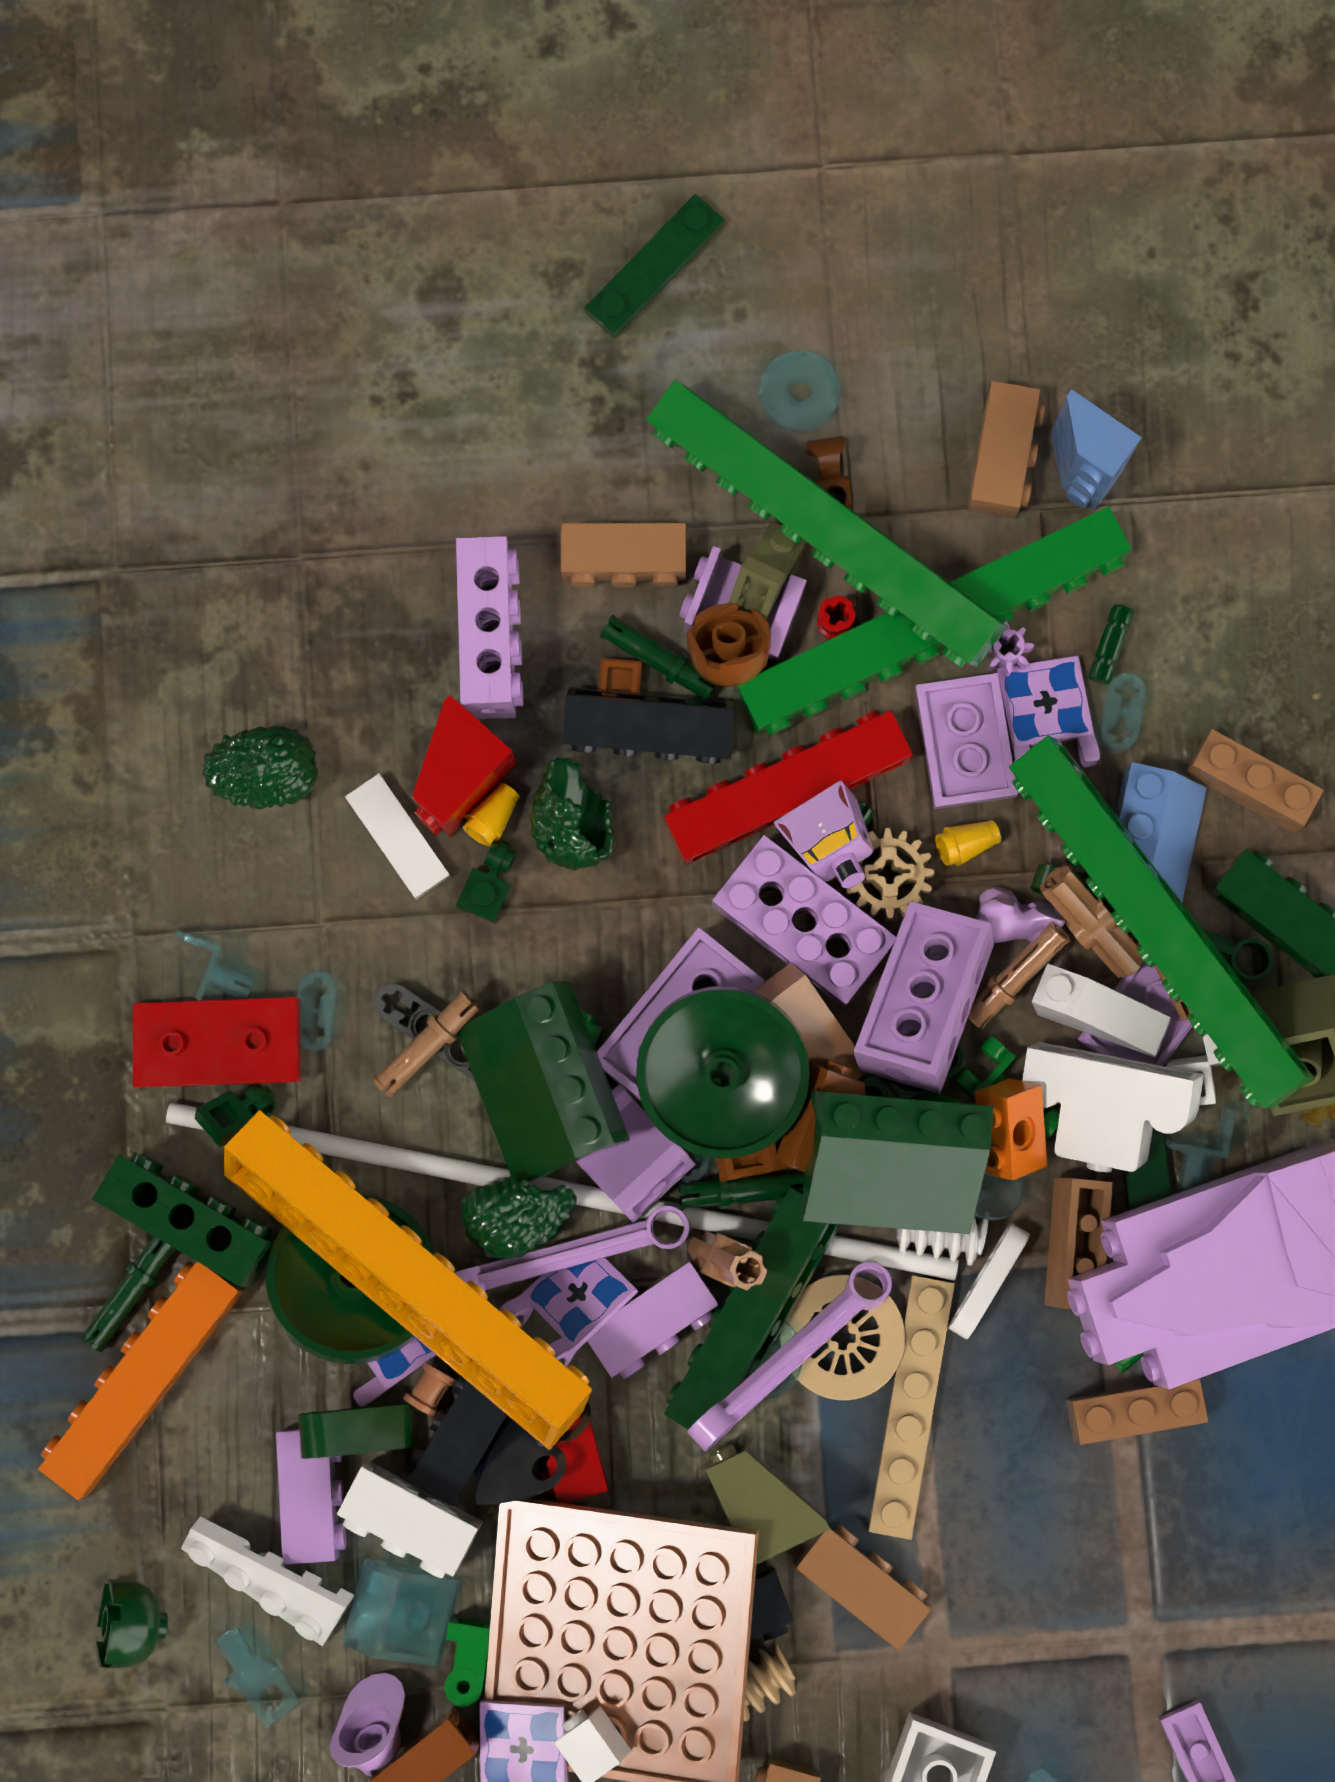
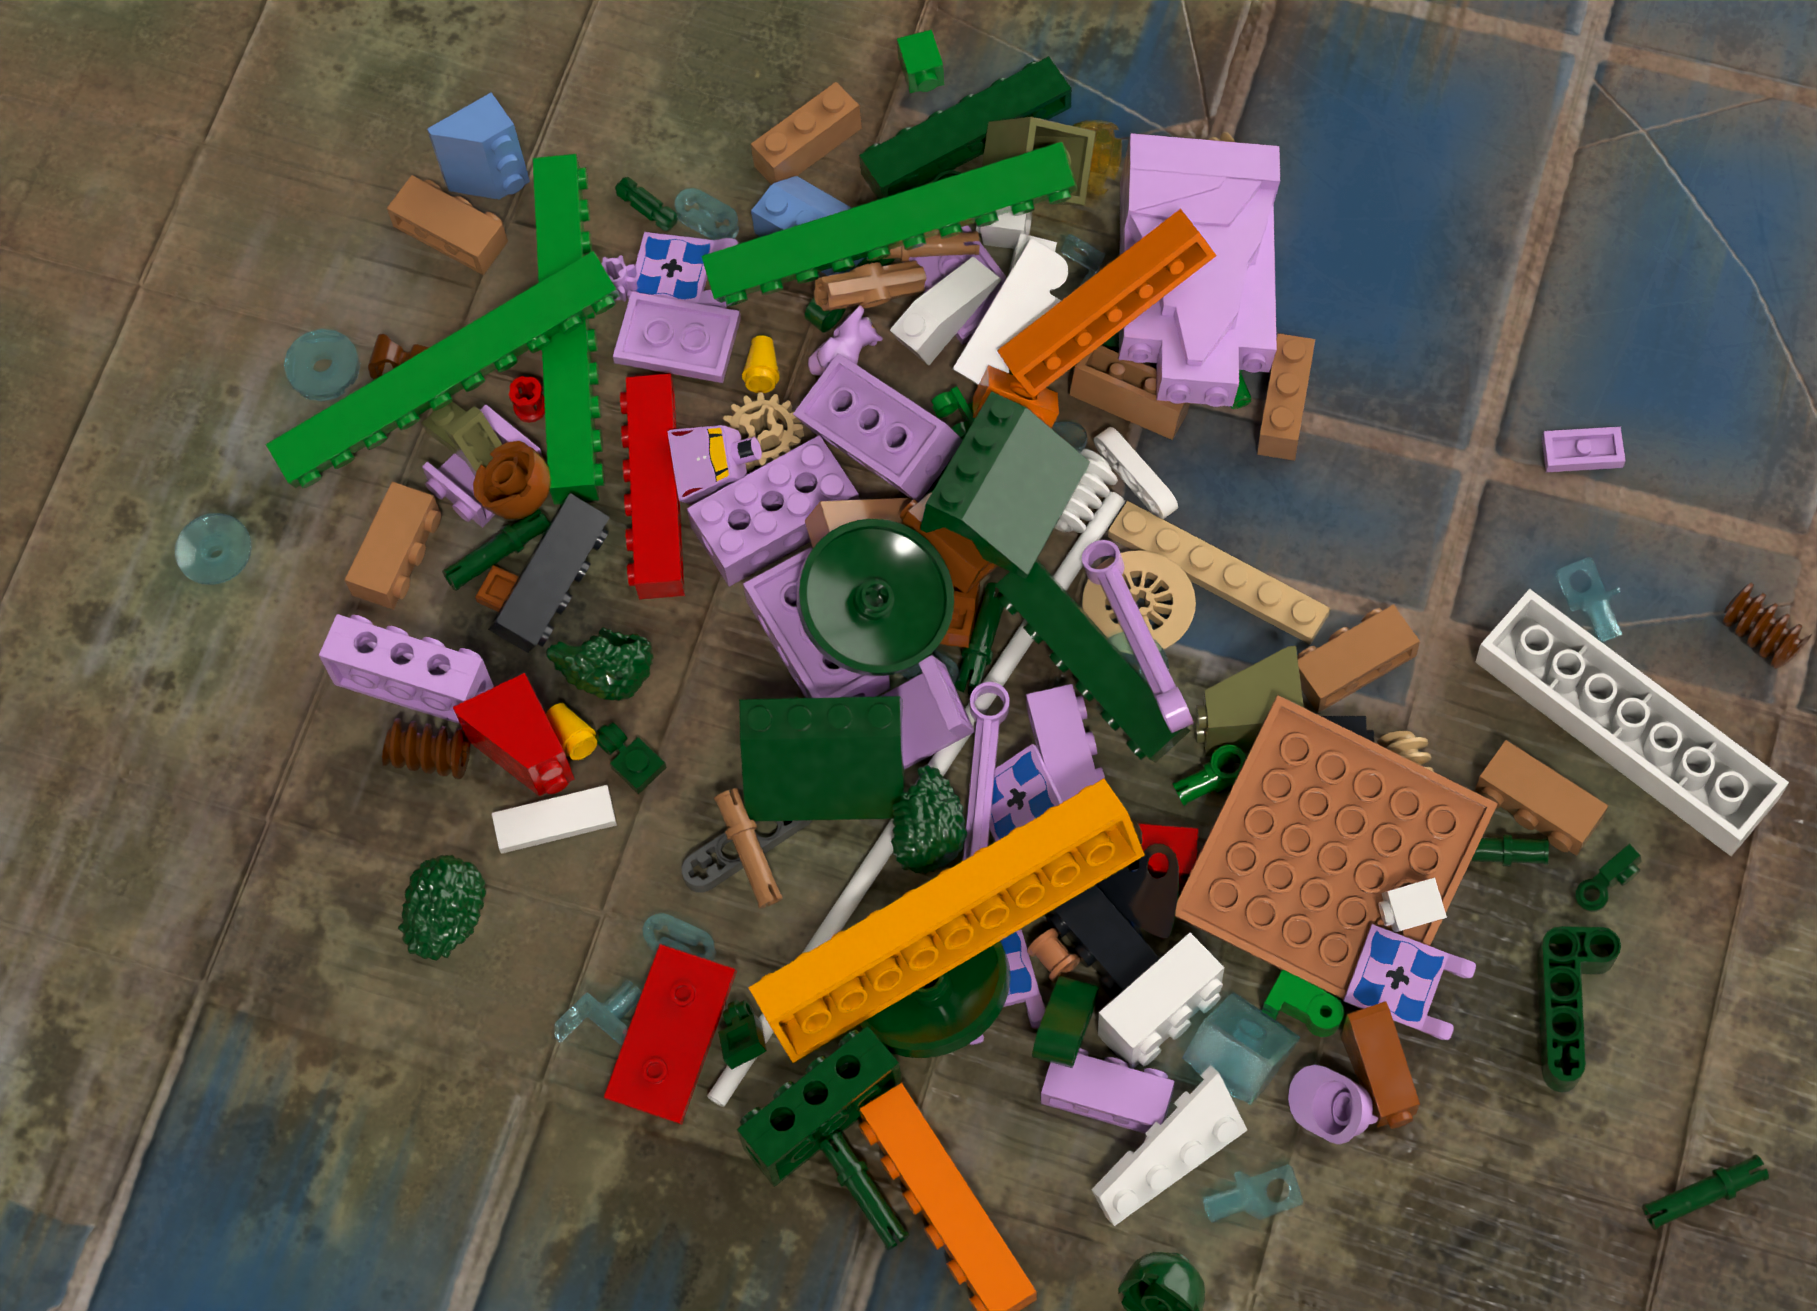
camera: 65 degrees left, 15 degrees down
(417, 681) = (426, 750): none -> reddish brown piece
(549, 358) = (206, 536): none -> clear light blue dish
(654, 266) = (157, 440): dark green plate -> none
(676, 1482) = (1212, 776): none -> green pin
(727, 1260) = (1036, 654): medium nougat piece -> none
(1005, 986) = (886, 352): medium nougat pin -> none
(1146, 1192) = (1106, 303): none -> orange brick

